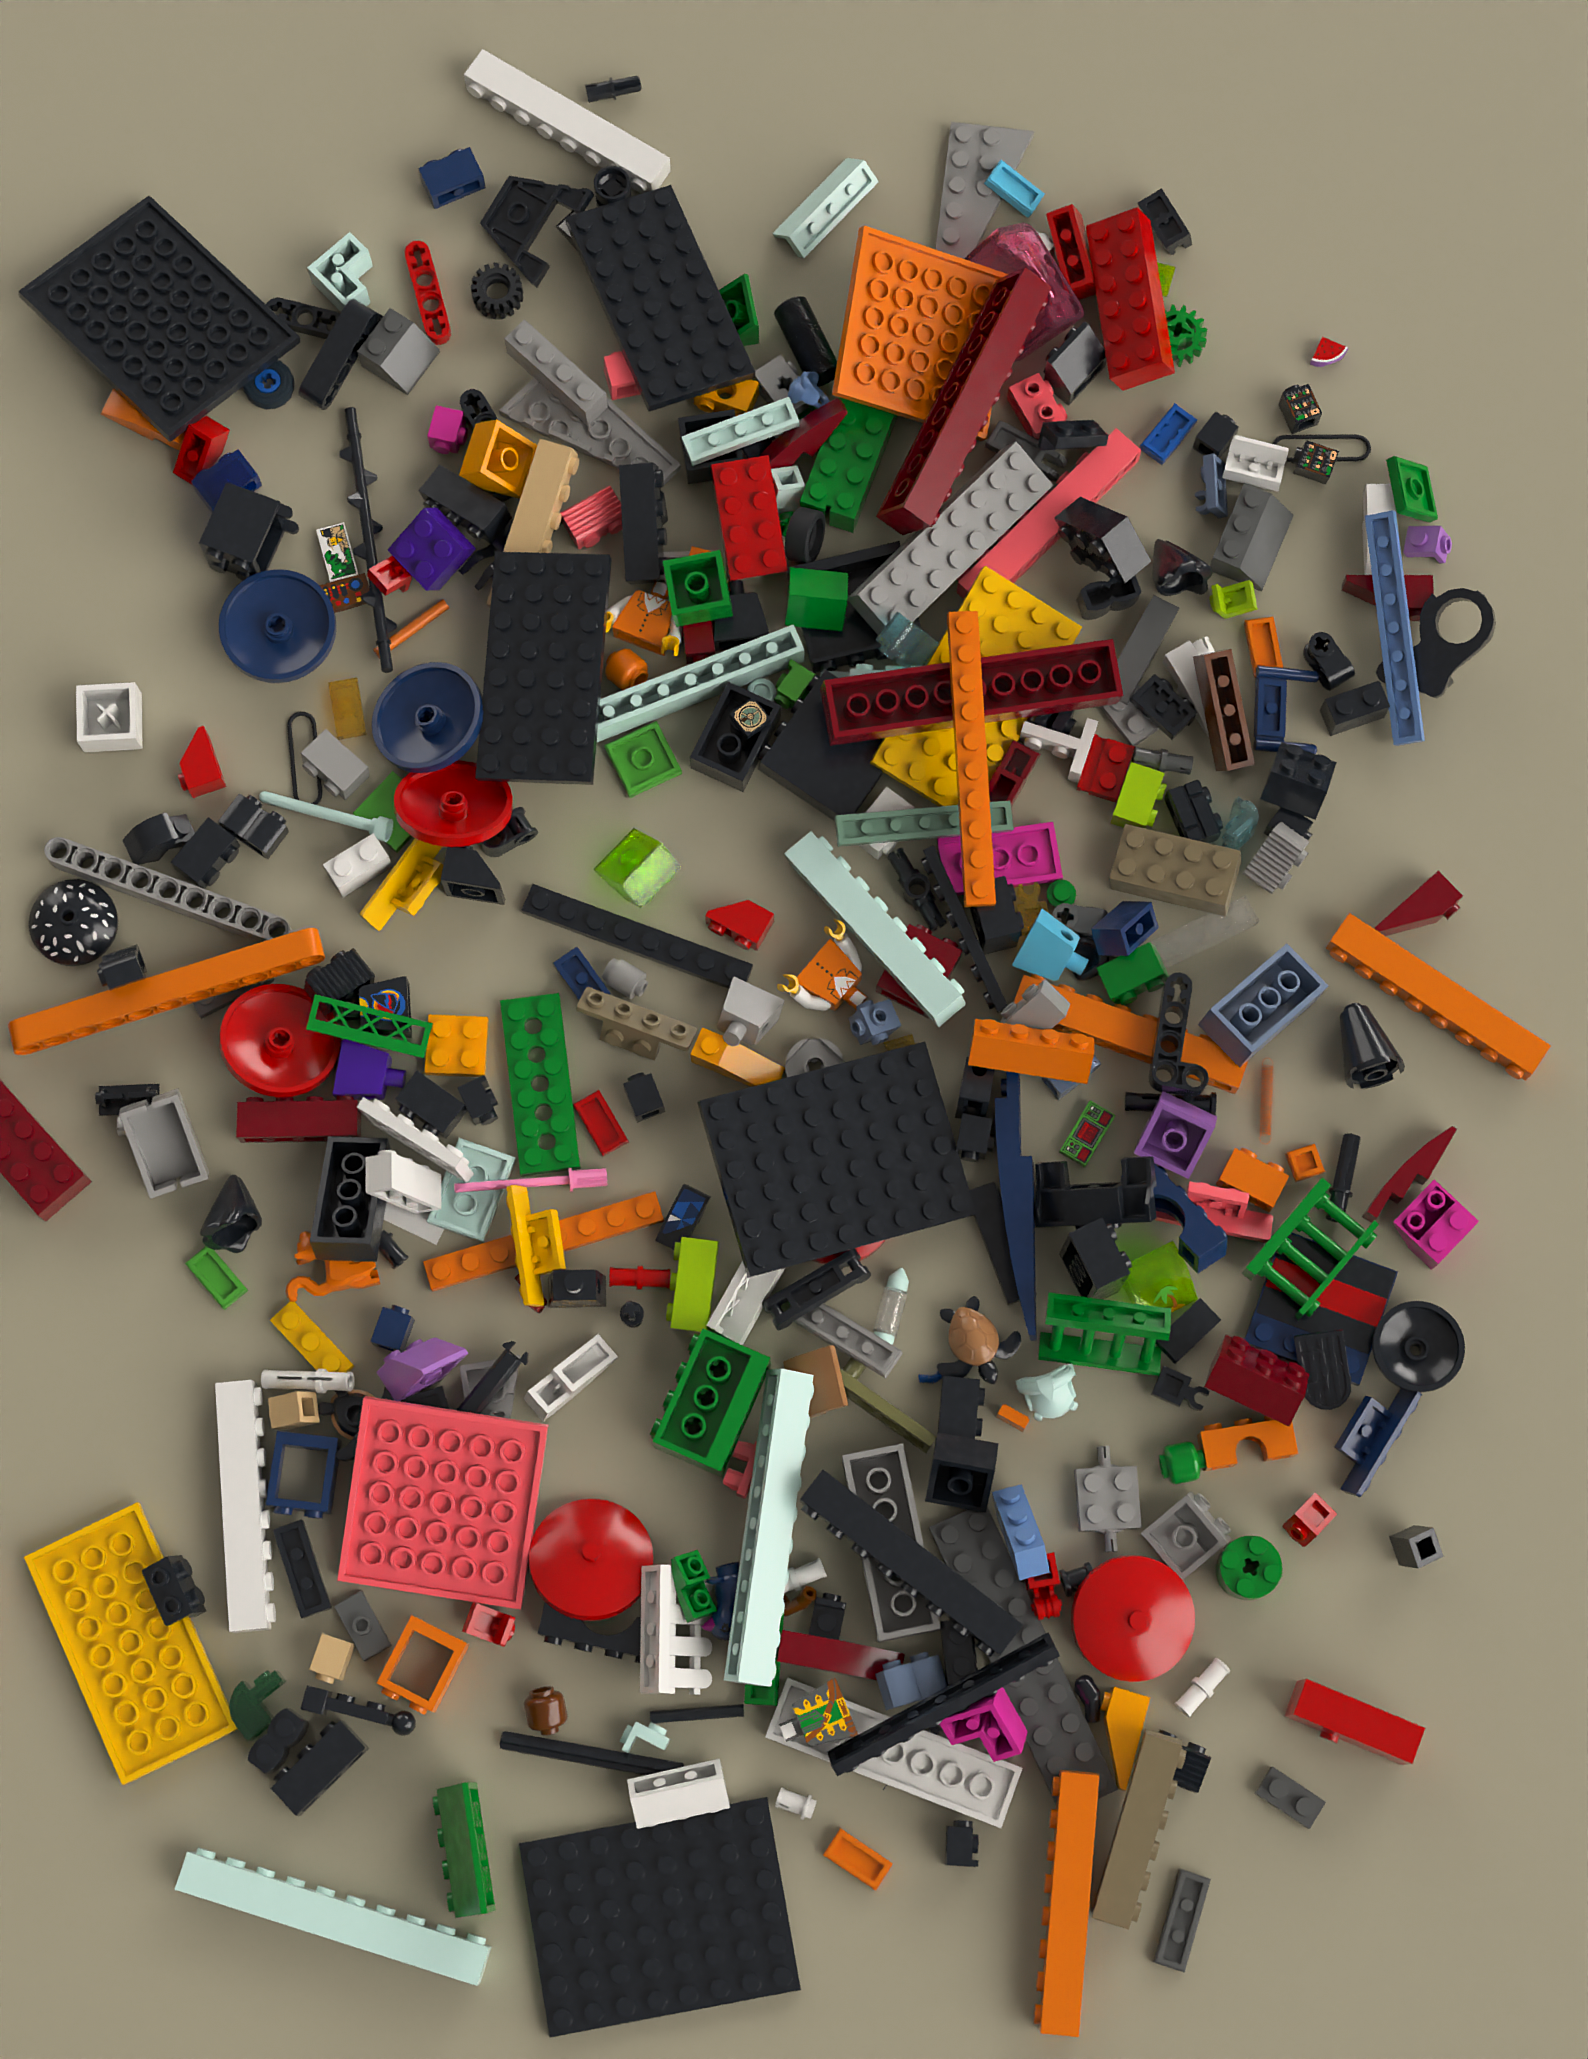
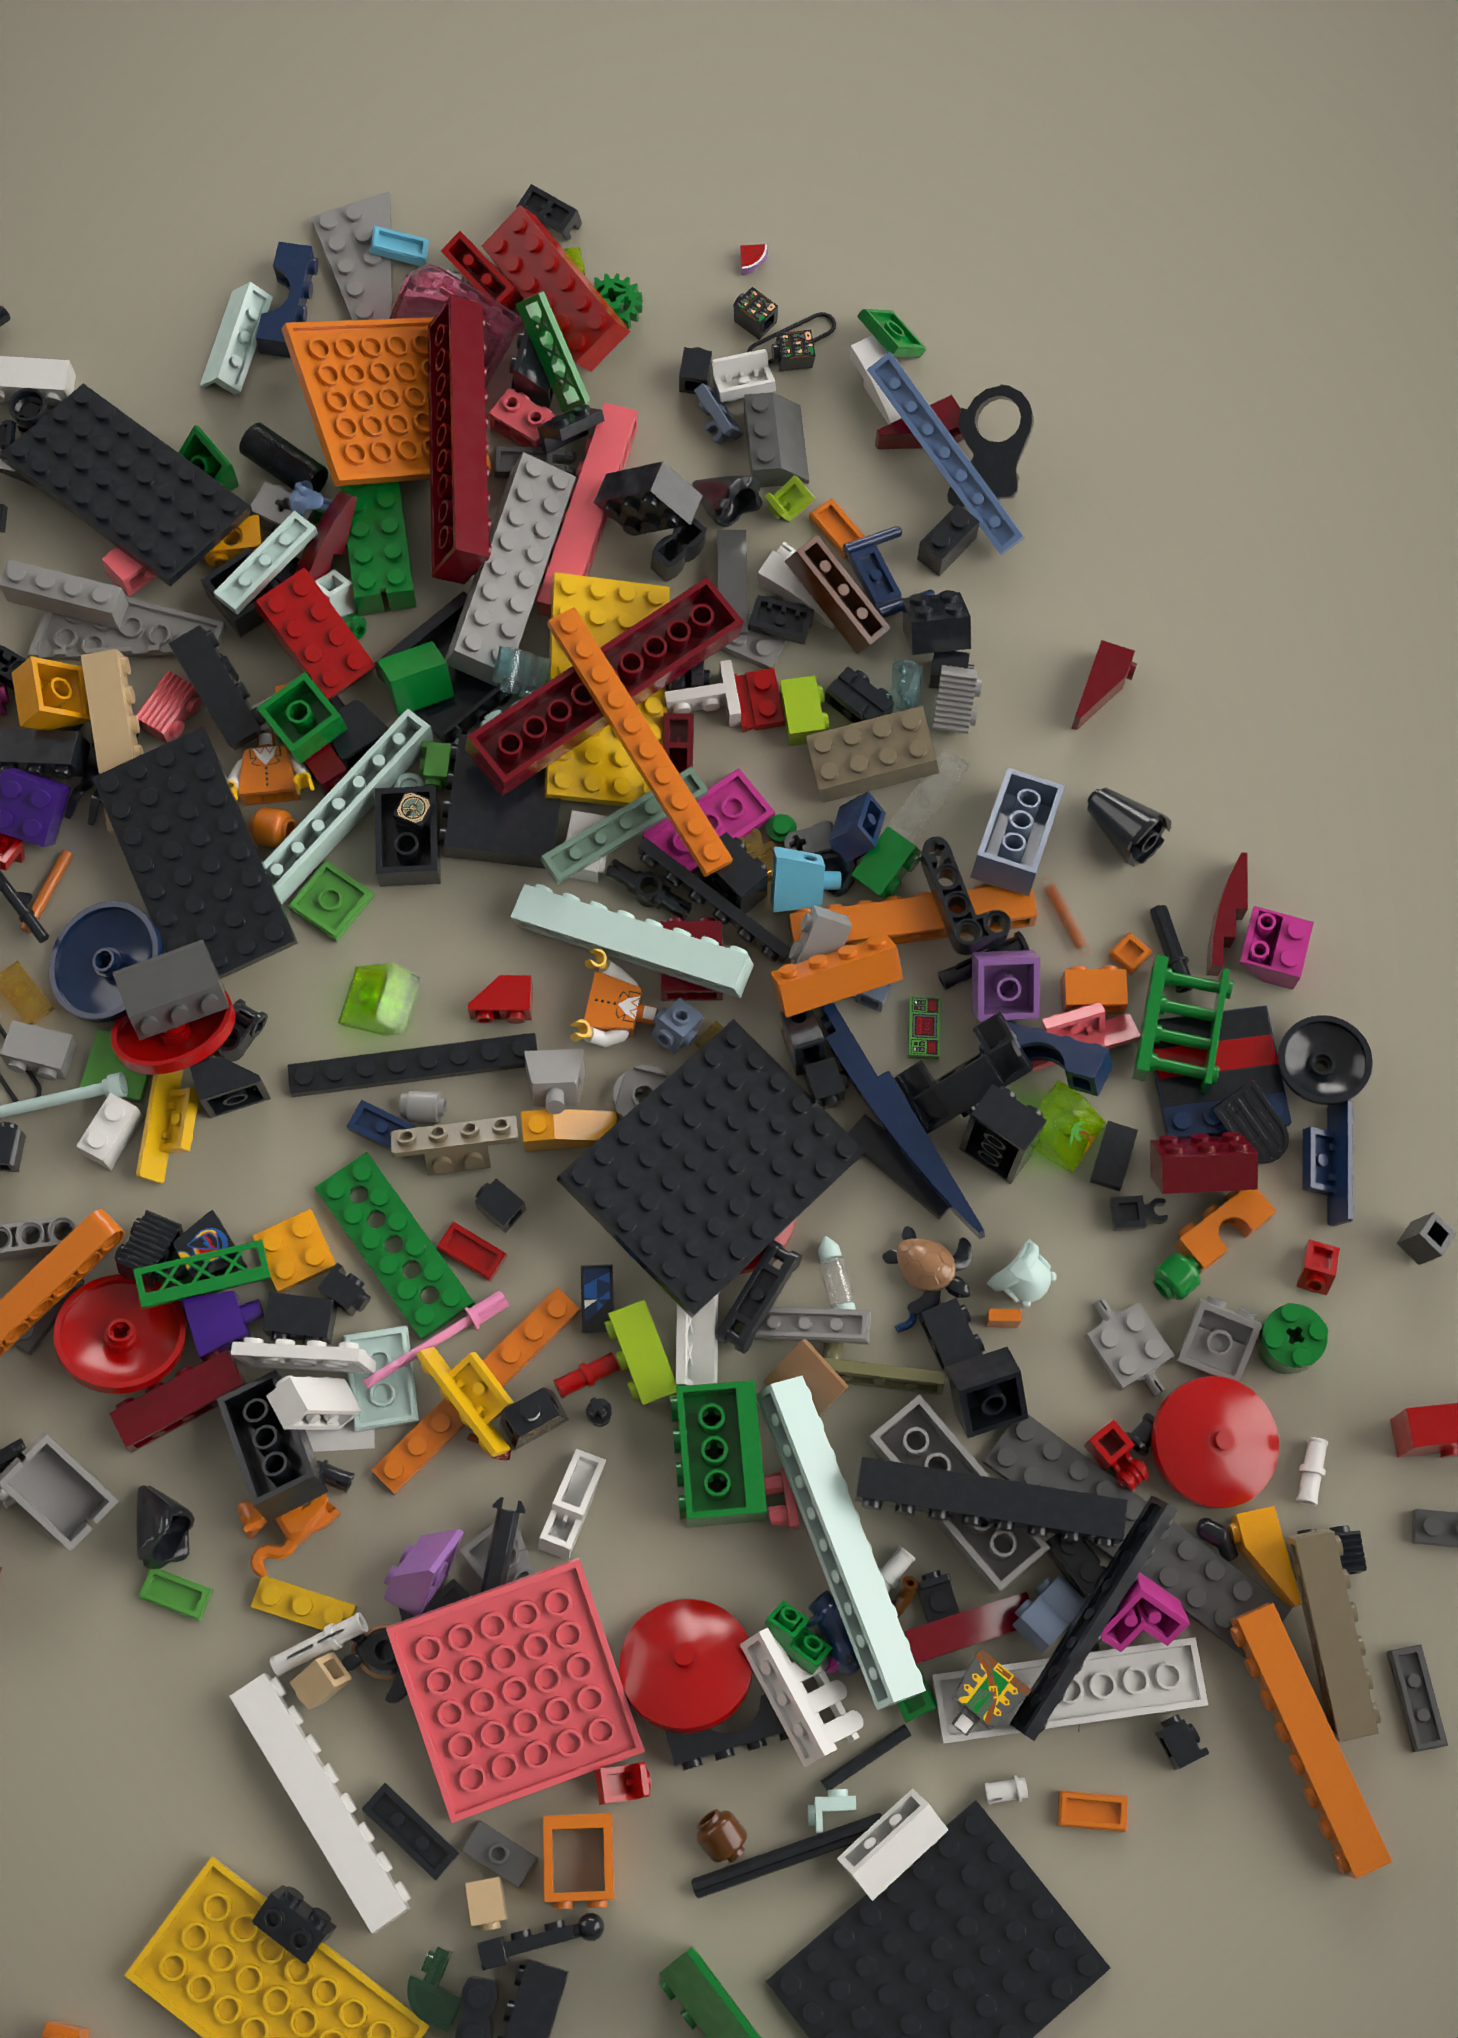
camera: 30 degrees left, 5 degrees down
(309, 1442) = (348, 1705): dark blue window -> none
(393, 1329) = (376, 1549): dark blue brick -> none
(466, 772) = (171, 989): none -> dark grey slope
(805, 535) = (374, 627): black tyre -> none
(910, 164) = (294, 269): none -> dark blue arch
(1020, 1532) = (1073, 1417): medium blue brick -> none
(1092, 360) = (553, 352): none -> green fence
(1107, 1317) = (1040, 1177): green fence -> none
(1163, 760) = (806, 666): dark grey pin -> none
(1168, 434) = (652, 388): blue plate -> none
(1331, 663) = (902, 511): black piece -> none
(1427, 542) = (930, 371): medium lavender bracket -> none
(1437, 997) = (1162, 750): orange brick -> none

